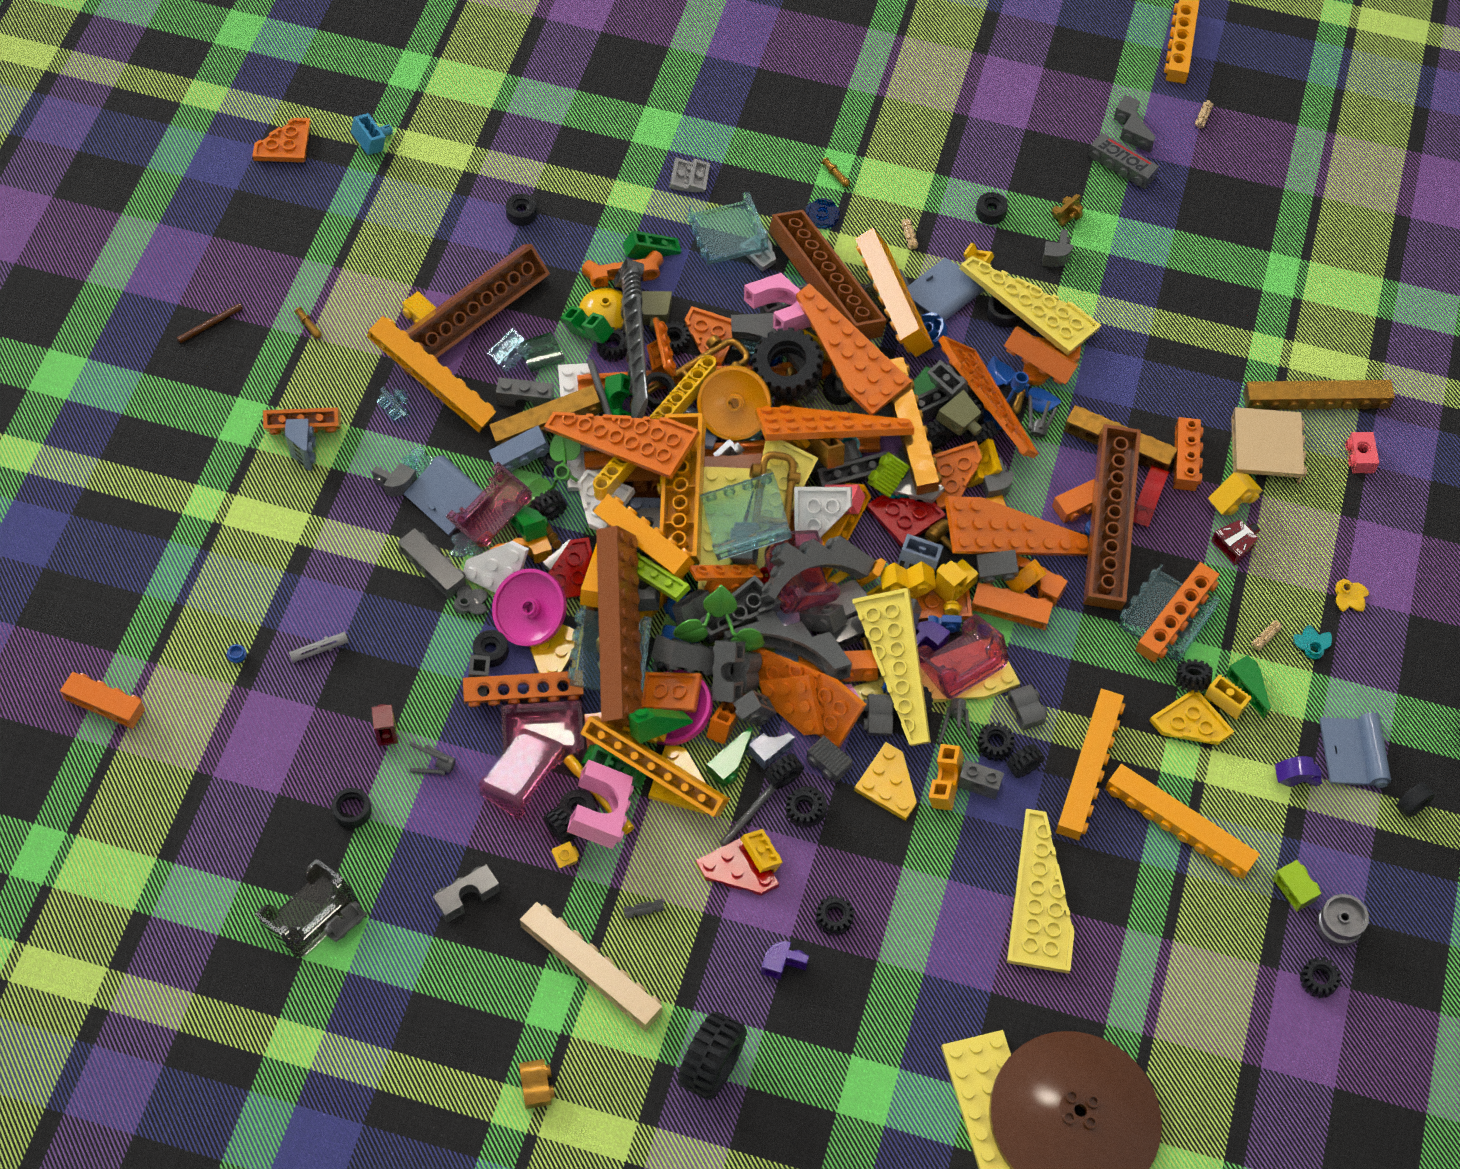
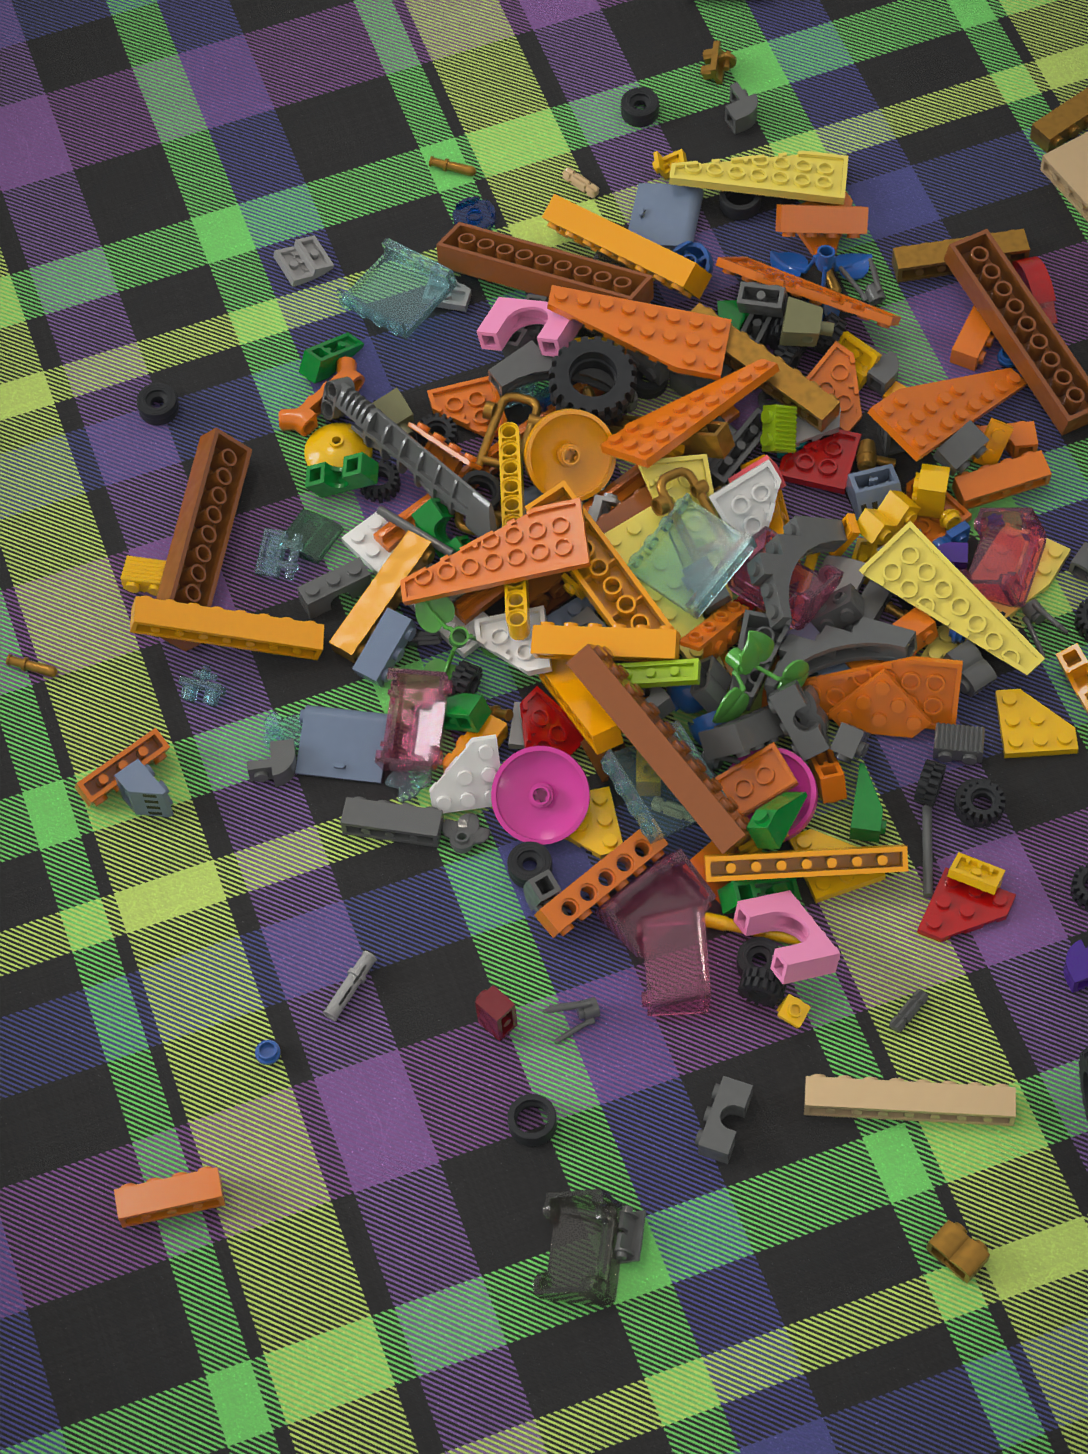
camera: 30 degrees left, 0 degrees up
(768, 749) = (891, 773): arch -> none
(1187, 457) = (1043, 237): orange brick -> none

